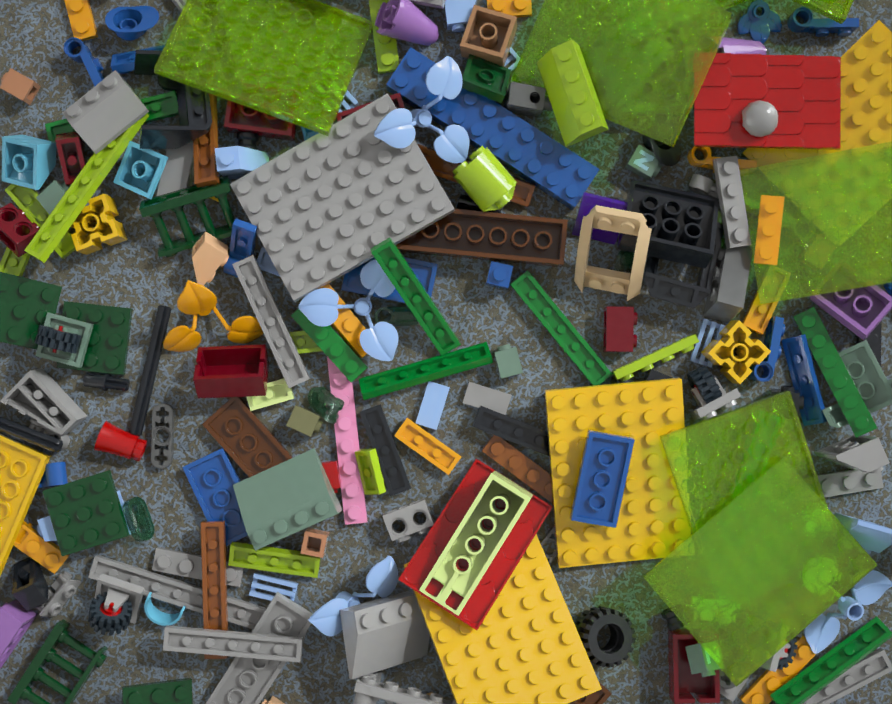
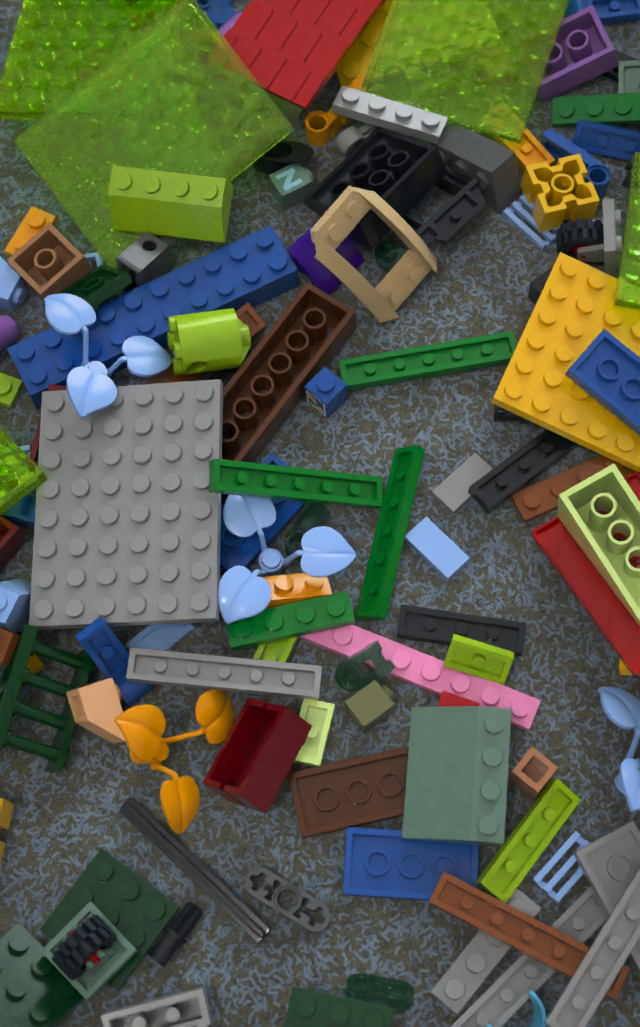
camera: 50 degrees left, 20 degrees down
(120, 442) = (265, 957): red plant -> none
(406, 514) = (559, 646): light grey brick -> none
(427, 446) = (484, 578): light orange plate -> none
(507, 361) = (433, 434): sand green brick -> none
(619, 329) = (464, 300): dark red brick -> none
(664, 354) = (520, 268): lime plate -> none
(760, 118) = (316, 31): light grey hair -> none
(769, 230) = (442, 90): light orange plate -> none

